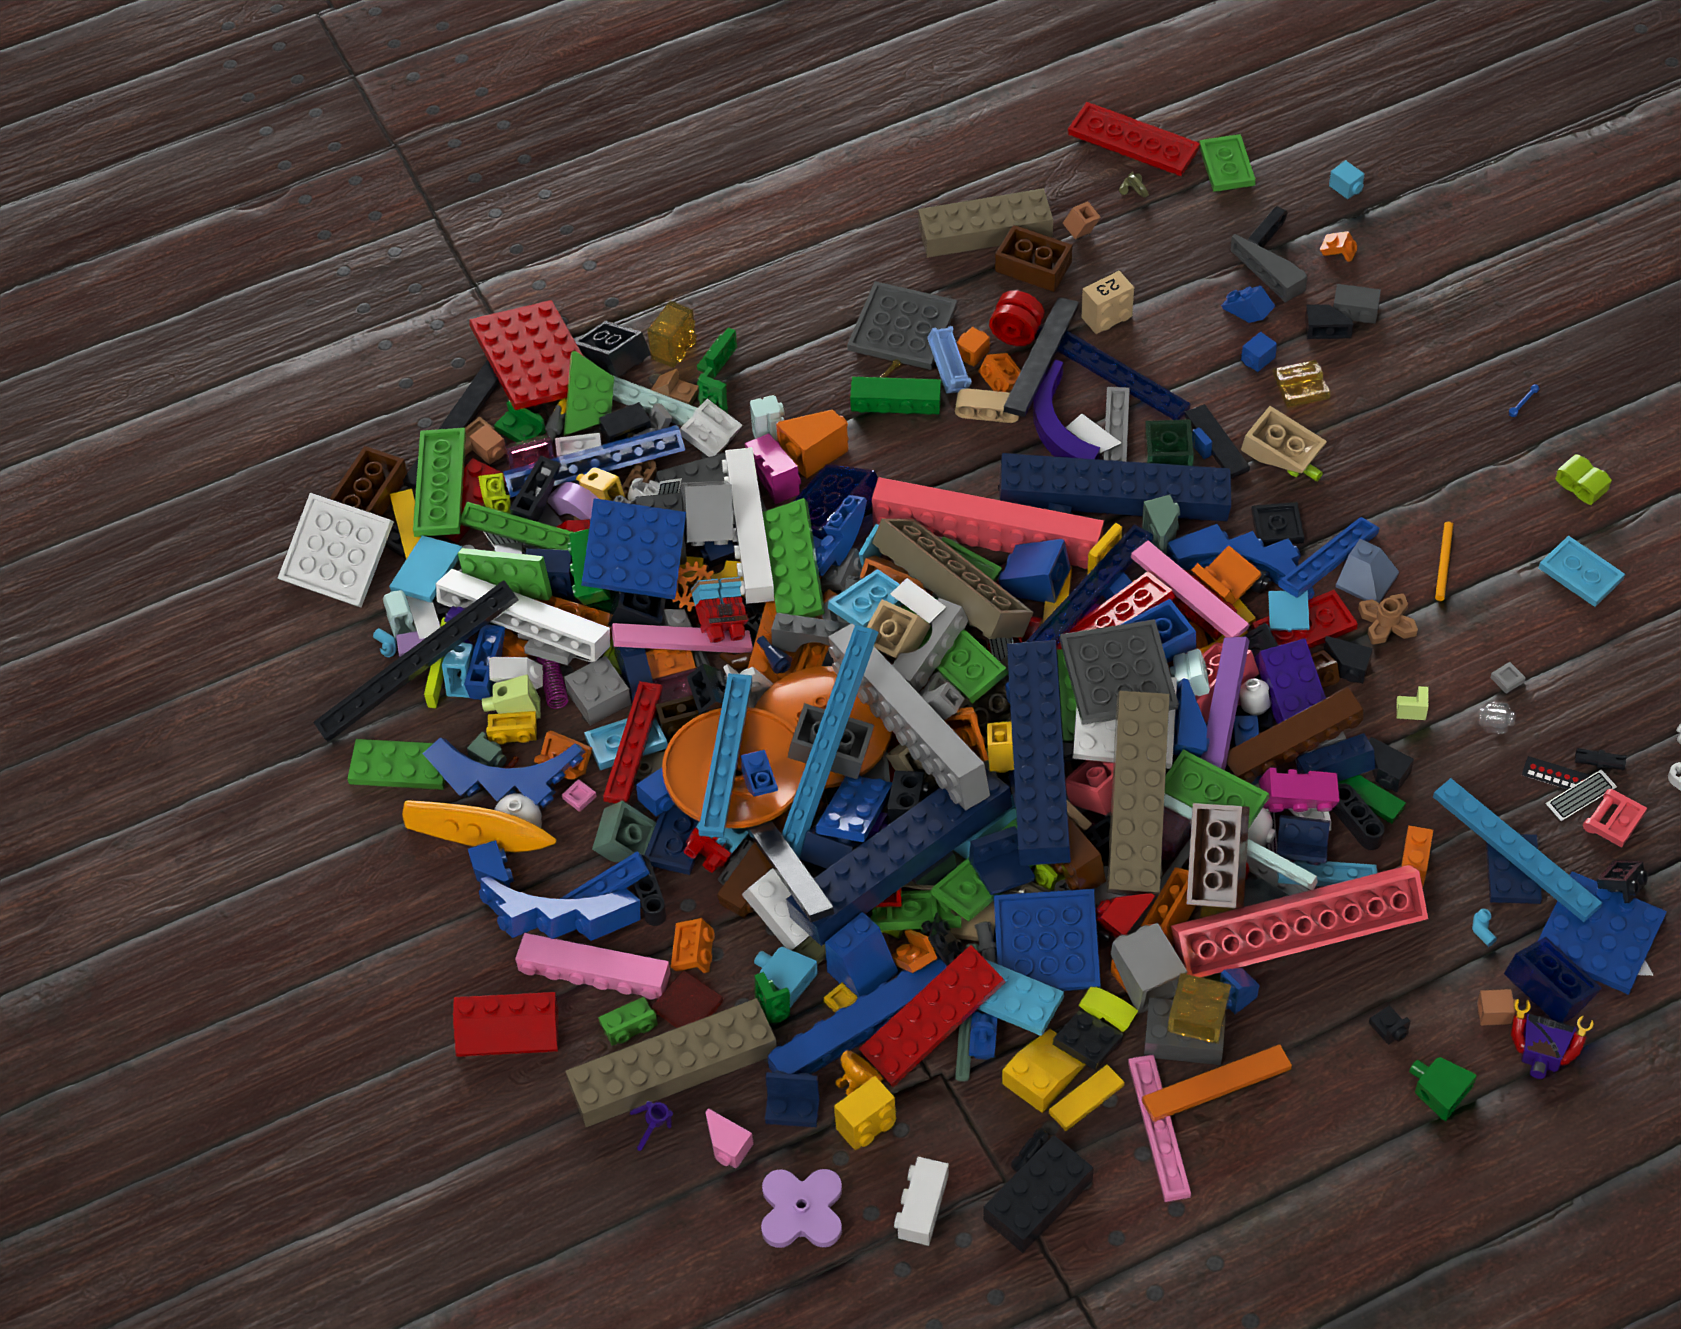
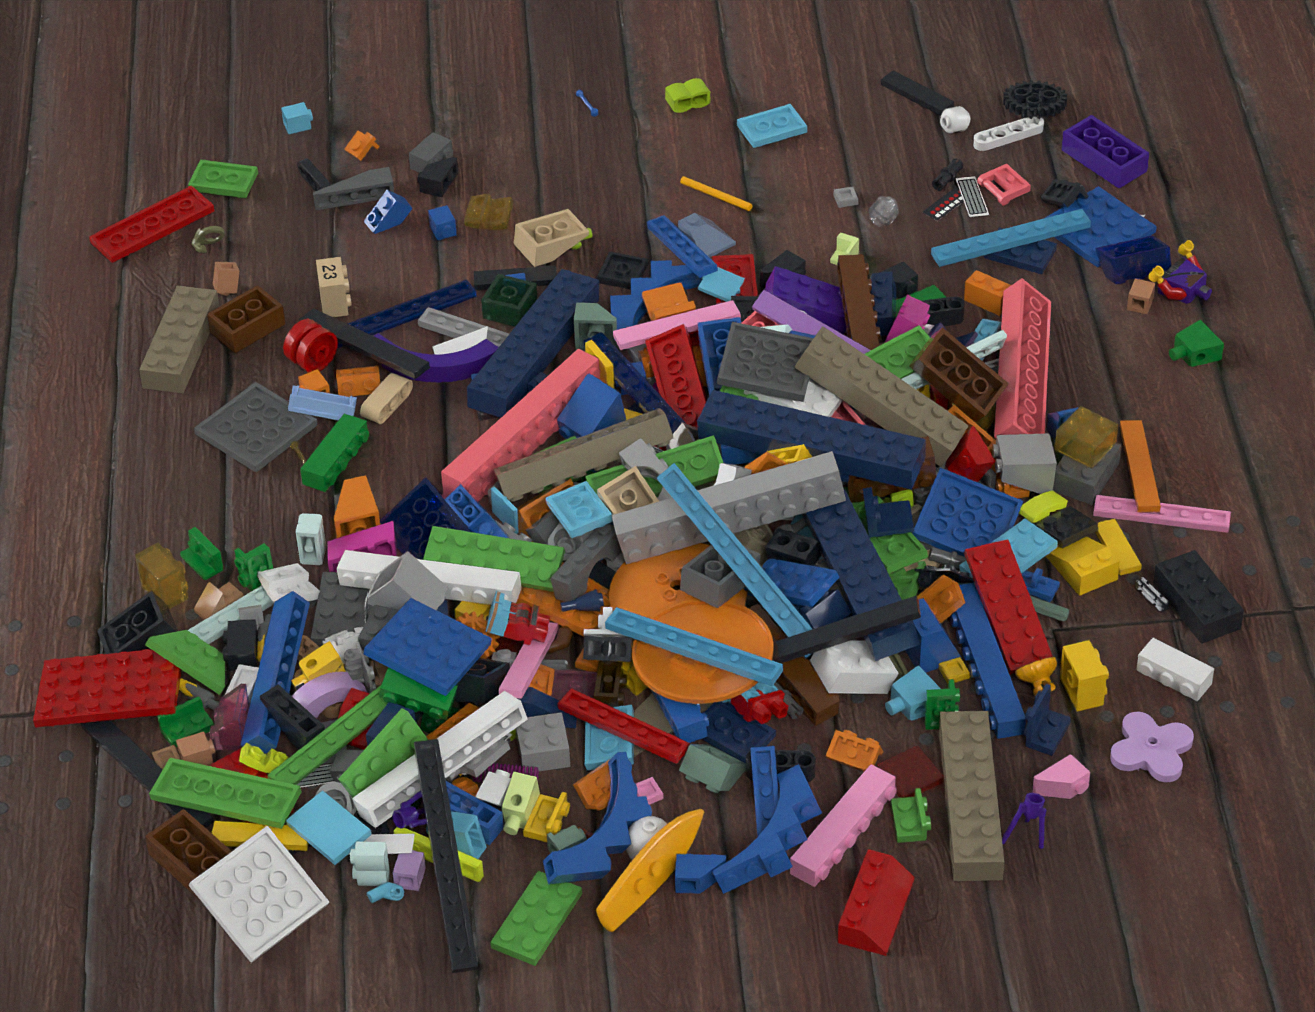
camera: 70 degrees left, 10 degrees down
(758, 773) = (735, 625): blue slope -> none
(918, 600) = (608, 470): white sticker -> none
(1387, 617) = (757, 236): medium nougat plant -> none
(1390, 1025) = (1129, 358): black bracket -> none
(1481, 925) = (1065, 284): medium azure arm -> none

